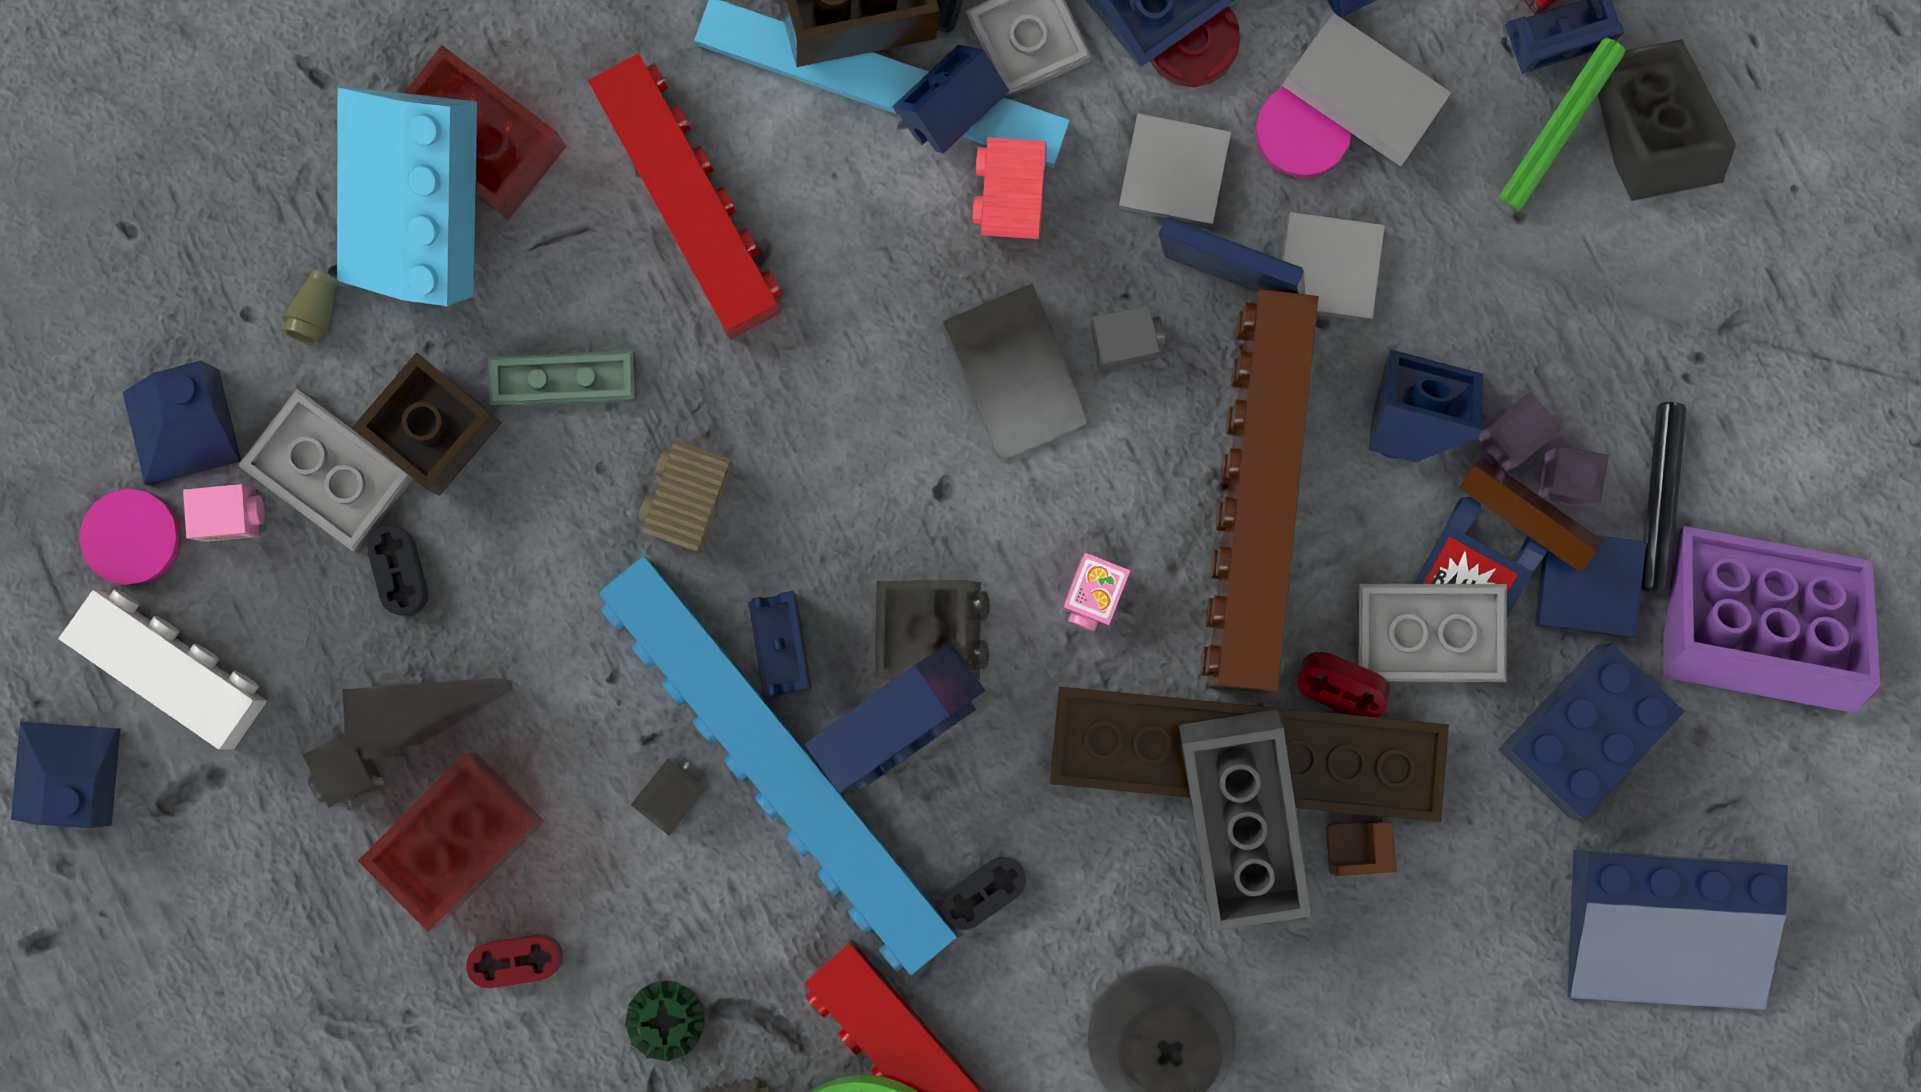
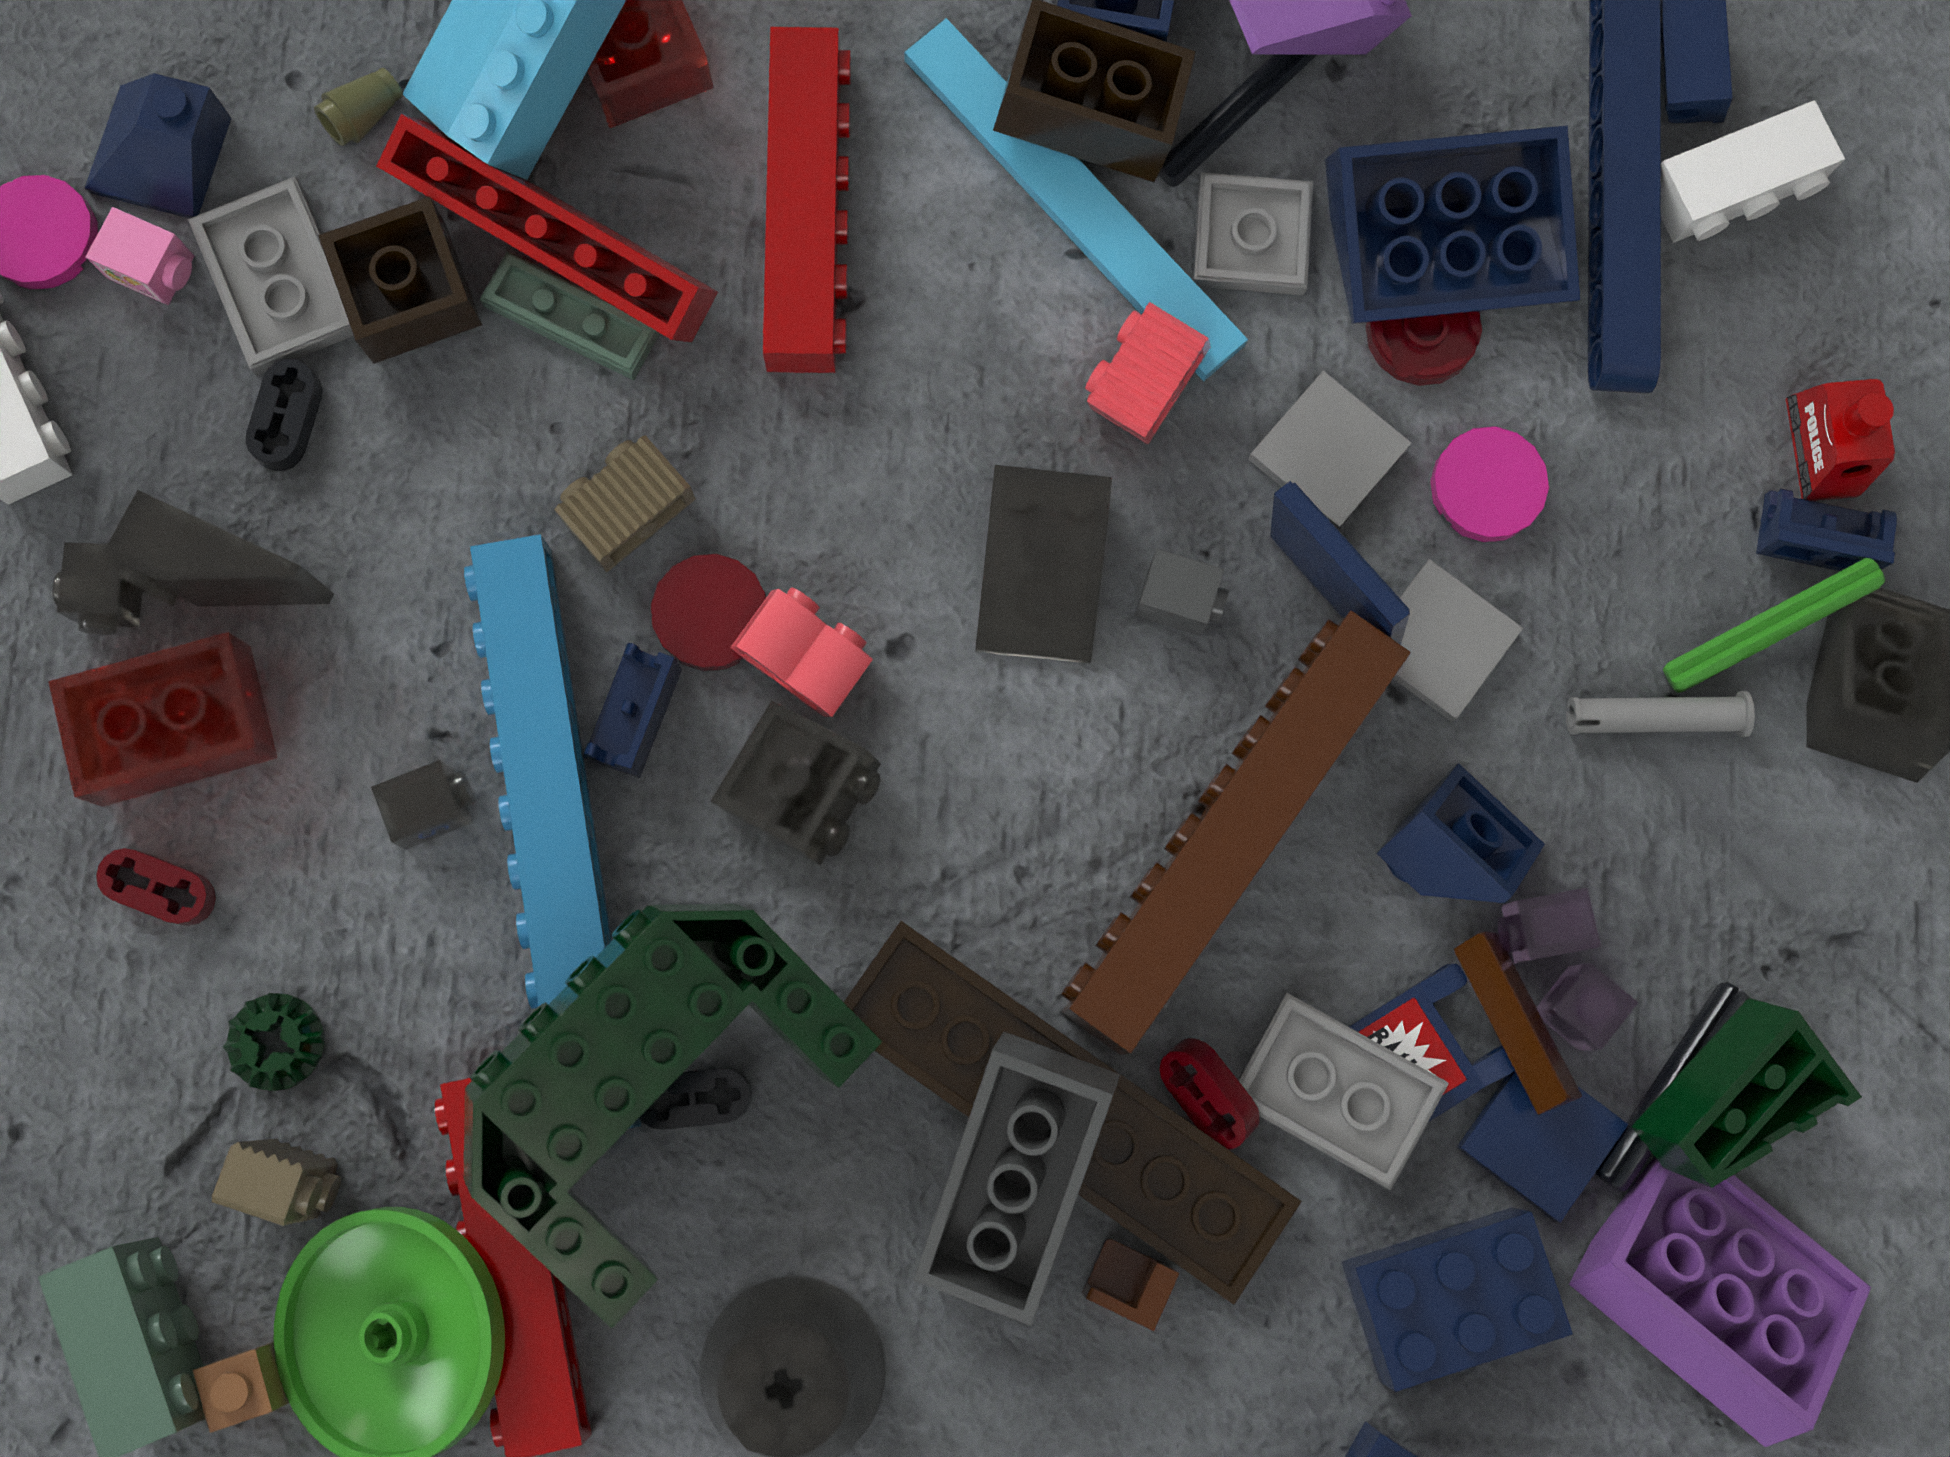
camera: 25 degrees right, 5 degrees down
(515, 327) = (548, 230): none -> red brick
(793, 541) = (704, 609): none -> dark red tile
(879, 533) = (802, 651): none -> coral brick
(897, 720) = (701, 851): dark blue brick -> none
(919, 895) = (609, 1052): none -> dark green wedge
(951, 97) = (1136, 248): dark blue hinge -> none
(1094, 592) = (995, 841): bright pink brick -> none
(1366, 89) = (1580, 476): light grey tile -> none
(1516, 233) = (1662, 714): none -> light grey pin
(1714, 477) = (1742, 1094): none -> dark green wedge

